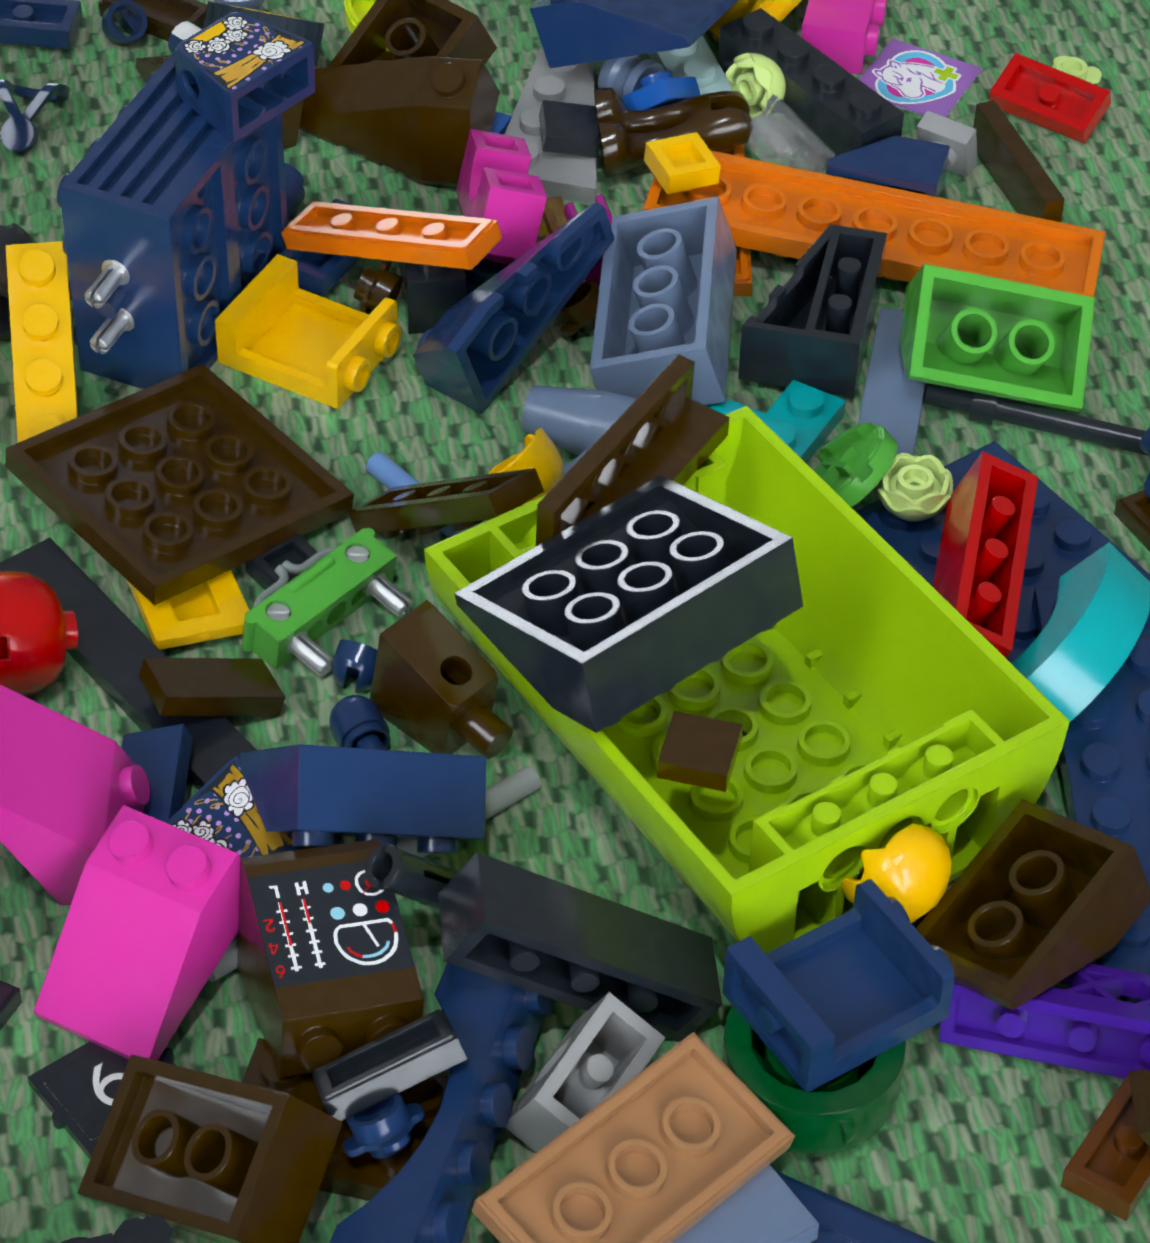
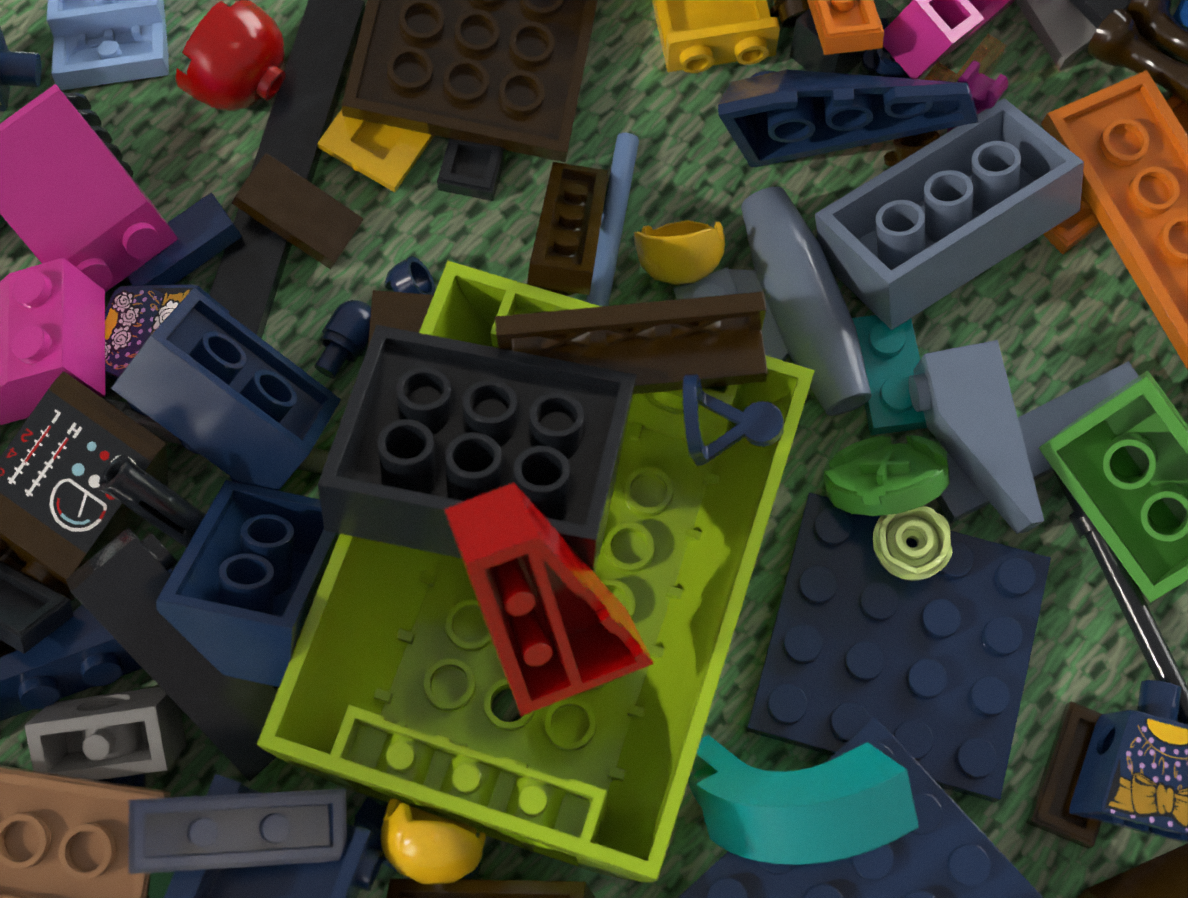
camera: 55 degrees right, 25 degrees up
(323, 594) = (448, 211): bright green piece -> none
(585, 837) = (249, 580): none -> dark blue slope
(682, 163) = (1117, 103): yellow plate -> none
(699, 751) = (377, 617): dark brown tile -> none
(759, 454) = (759, 423): none -> dark blue piece
(790, 955) = (236, 830): none -> dark blue tile
(805, 601) = (541, 602): none -> red wedge
(821, 317) = (1068, 326): black wedge -> none
(837, 386) = (977, 423): none -> sand blue slope
(987, 547) = (839, 666): red brick -> none

